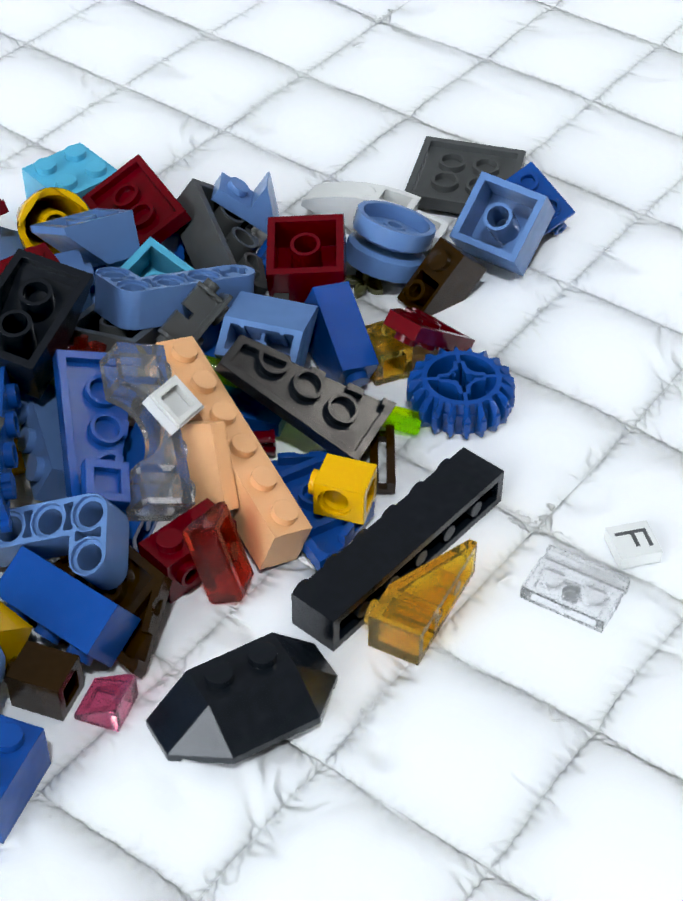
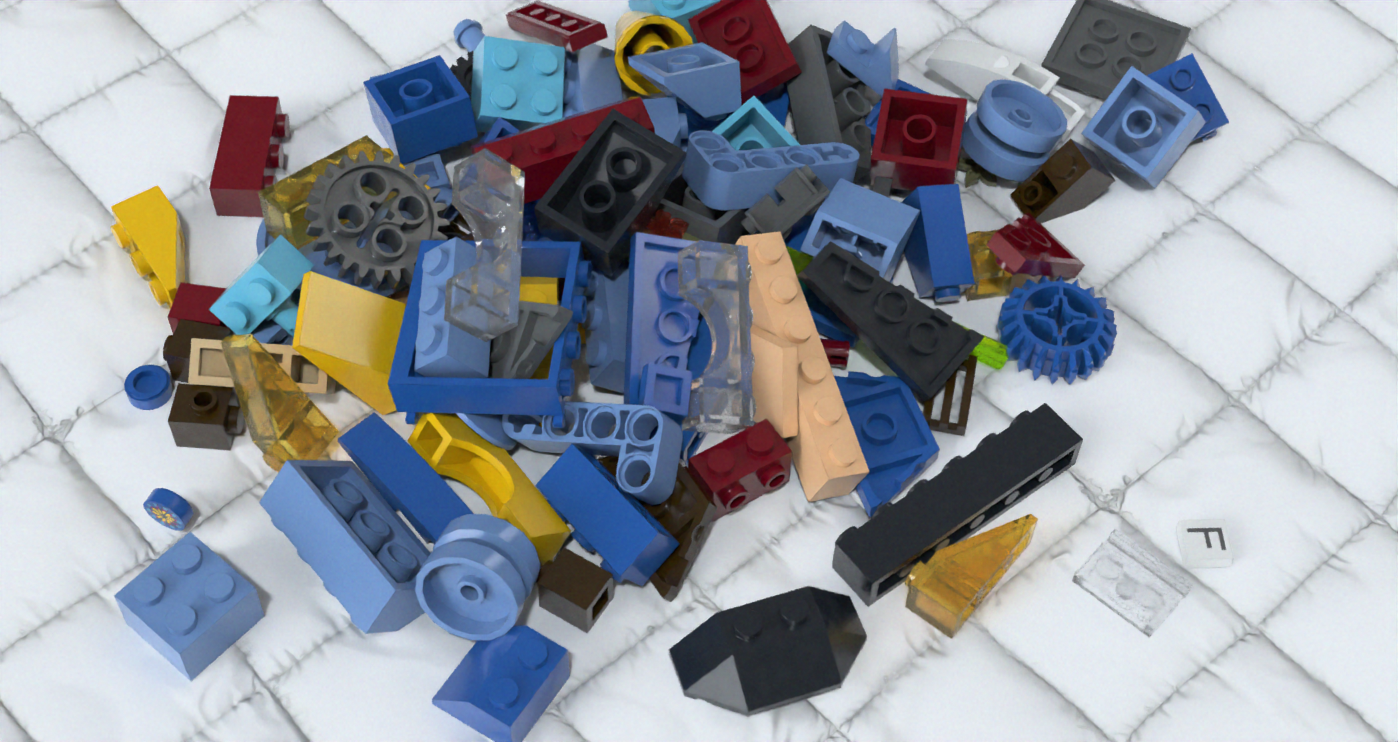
camera: 10 degrees right, 10 degrees up
(108, 701) = (634, 622): clear pink slope -> none
(173, 405) = (747, 316): white tile -> none
(219, 555) = (769, 485): clear red slope -> none
(343, 488) = (909, 431): yellow brick -> none

